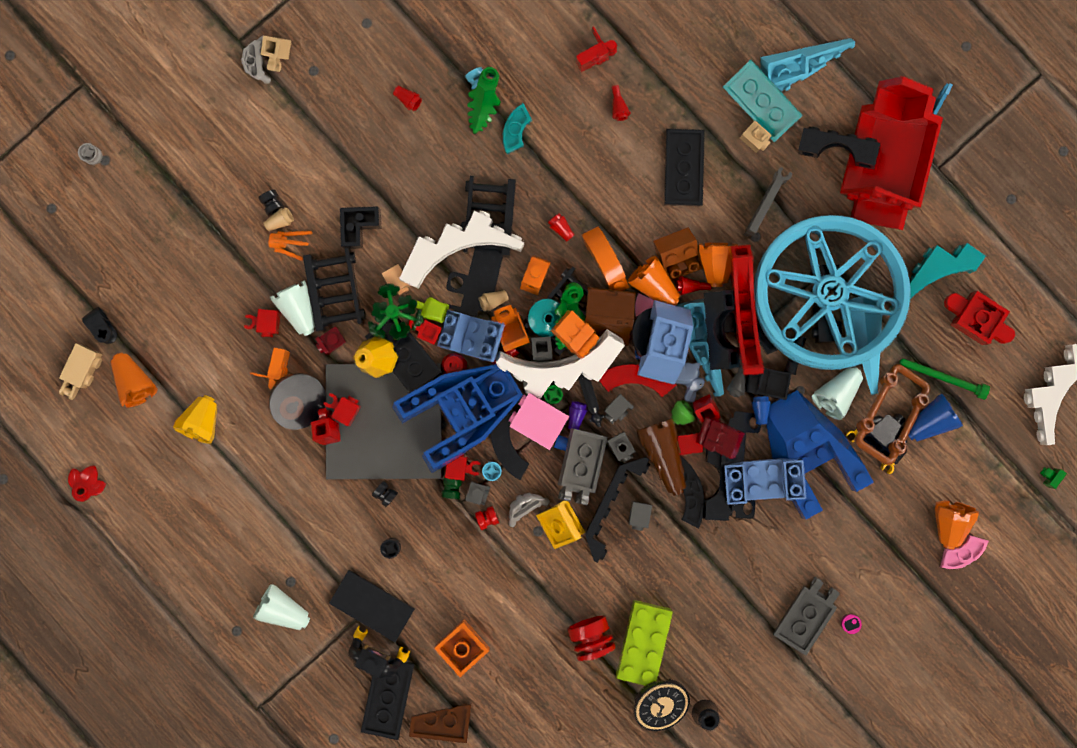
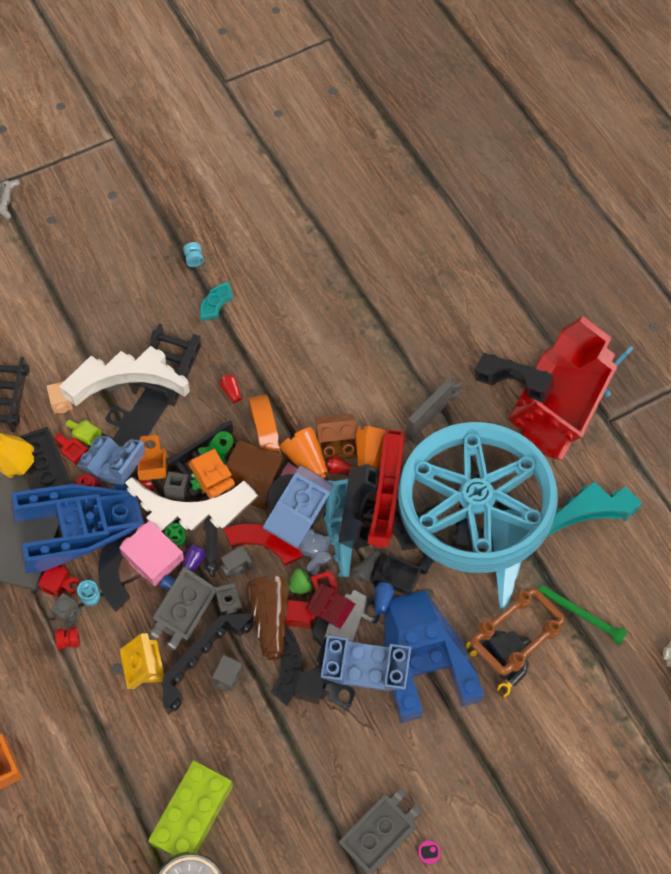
camera: 15 degrees right, 25 degrees down
(275, 49) = (24, 192): tan brick -> none
(354, 221) = (40, 338): black brick -> none
(383, 313) = (37, 419): dark green plant -> none
(408, 98) = (127, 256): red cone -> none
(451, 484) = (42, 600): dark green wheel -> none
(483, 100) = (193, 269): green plant -> none
(491, 300) = (139, 432): tan cone -> none
(523, 505) = (109, 634): light grey piece -> none
(535, 275) = (193, 418): orange torso -> none
(537, 316) = (179, 457): teal dish -> none
(593, 642) = (134, 785): red wheel -> none
(596, 54) = (306, 255): red piece -> none
(620, 109) = (316, 304): red cone -> none
(684, 167) = (363, 366): black tile -> none
(756, 137) = (437, 353): tan brick -> none
(762, 100) = (450, 325): teal tile -> none
(799, 64) = (478, 307): medium azure wedge -> none
(838, 393) = (465, 599): light aqua cone -> none
(935, 420) = (562, 649): blue cone -> none
(954, 522) = (564, 764): orange cone -> none
(965, 554) = (572, 805): bright pink tile -> none
(979, 318) = (632, 554): red brick -> none

